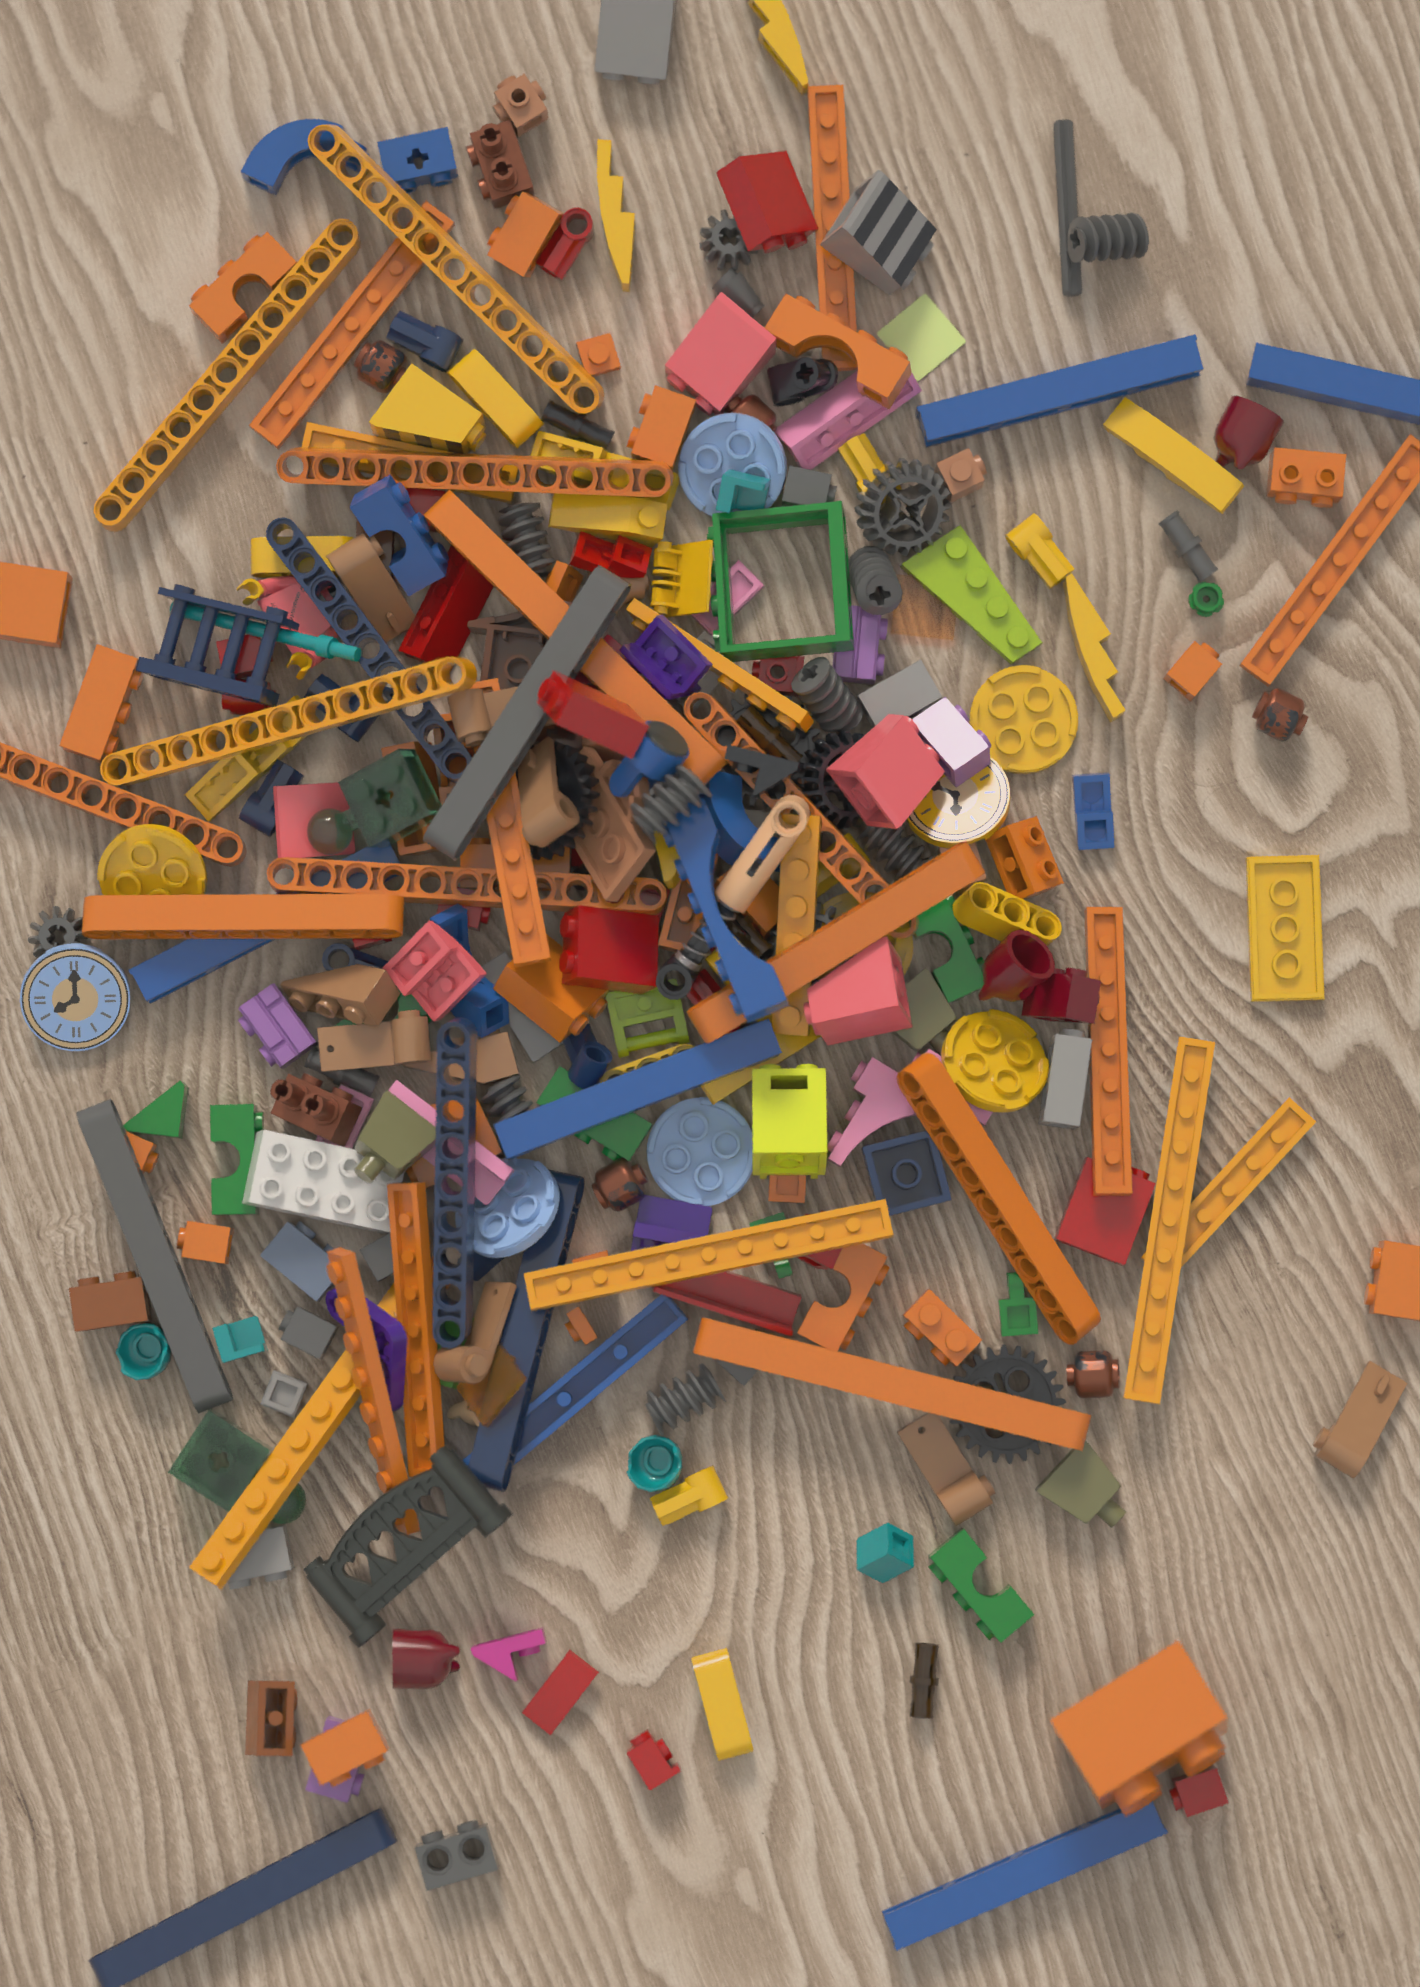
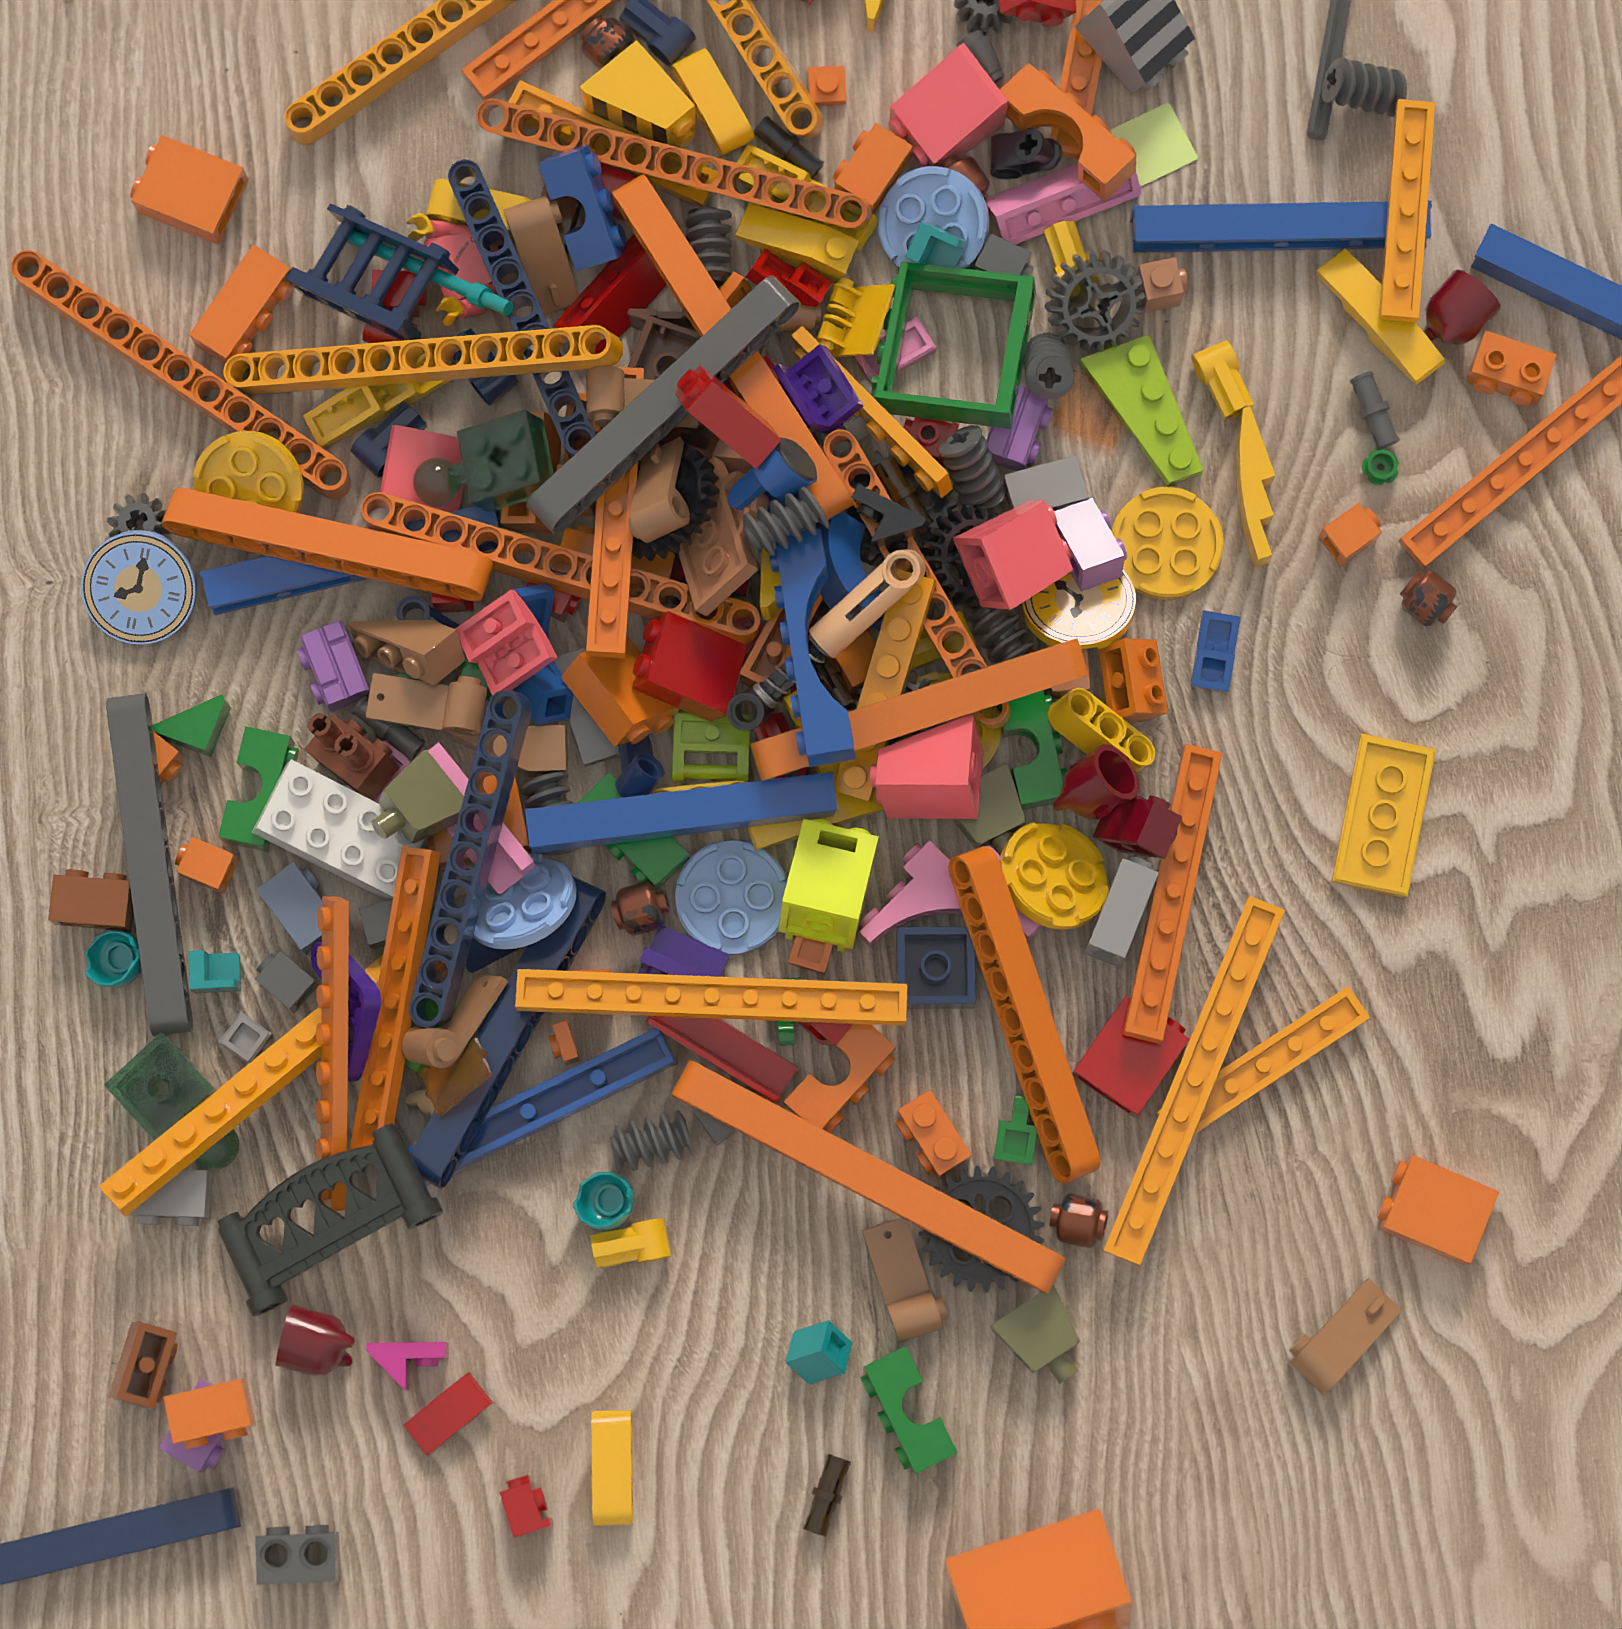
camera: 15 degrees right, 5 degrees down
(1175, 351) = (1407, 210): none -> light orange plate

